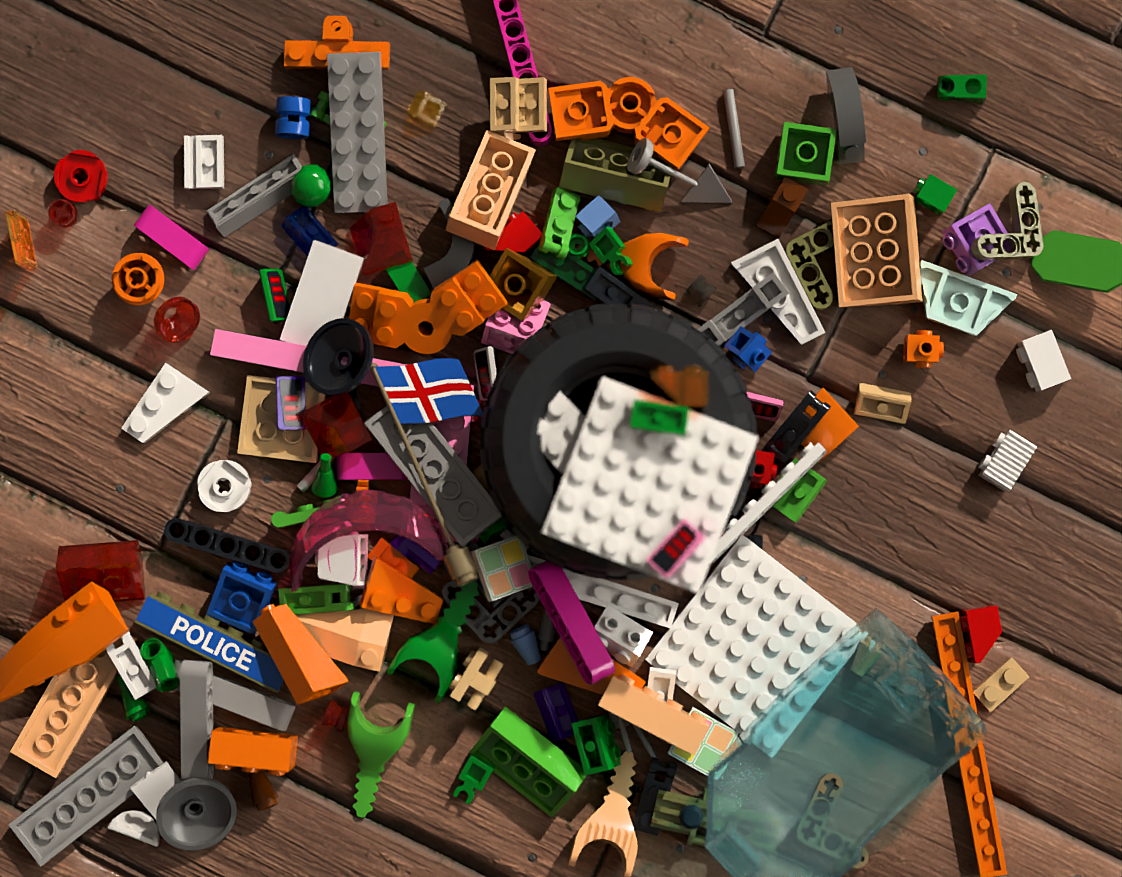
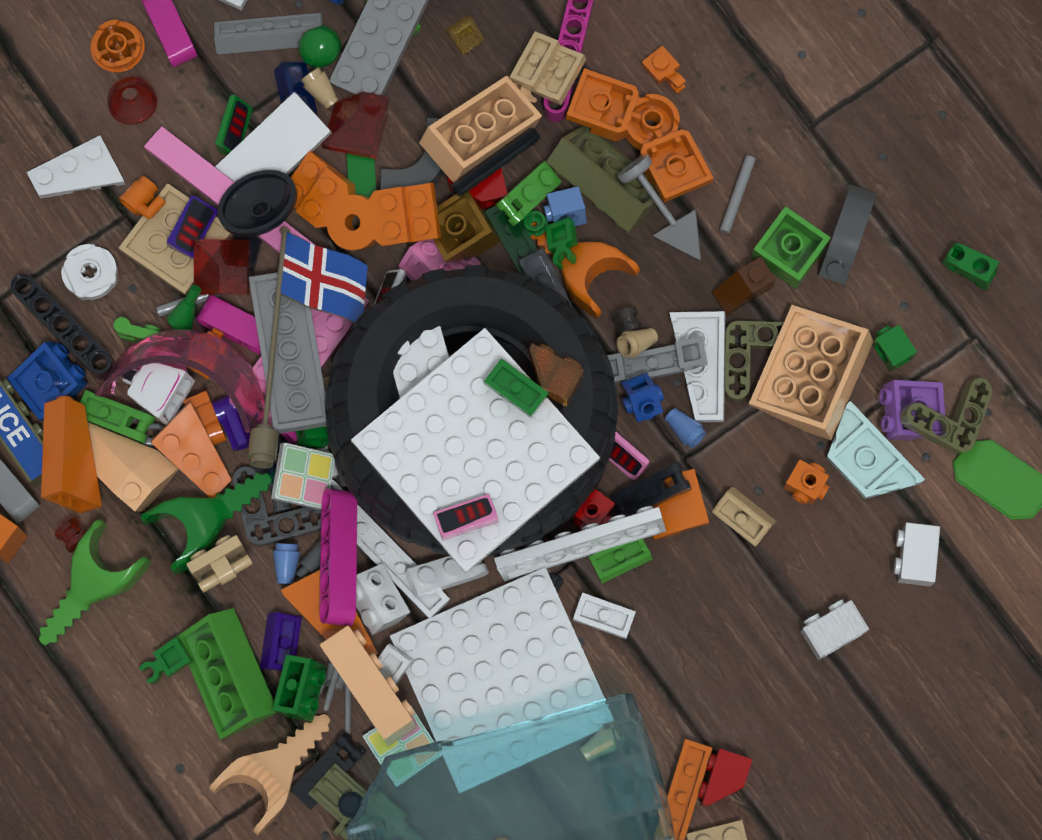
camera: 25 degrees right, 10 degrees down
(229, 399) = (139, 196): none -> orange piece
(330, 222) = (320, 87): none -> tan cone
(518, 211) = (495, 162): none -> black axle
(611, 49) = (663, 67): none -> orange plate
(654, 595) = (441, 575): none -> white plate
(717, 304) = (634, 342): none -> tan cone
(796, 354) = (687, 429): none -> medium blue cone
(812, 549) = (604, 616): none -> white plate

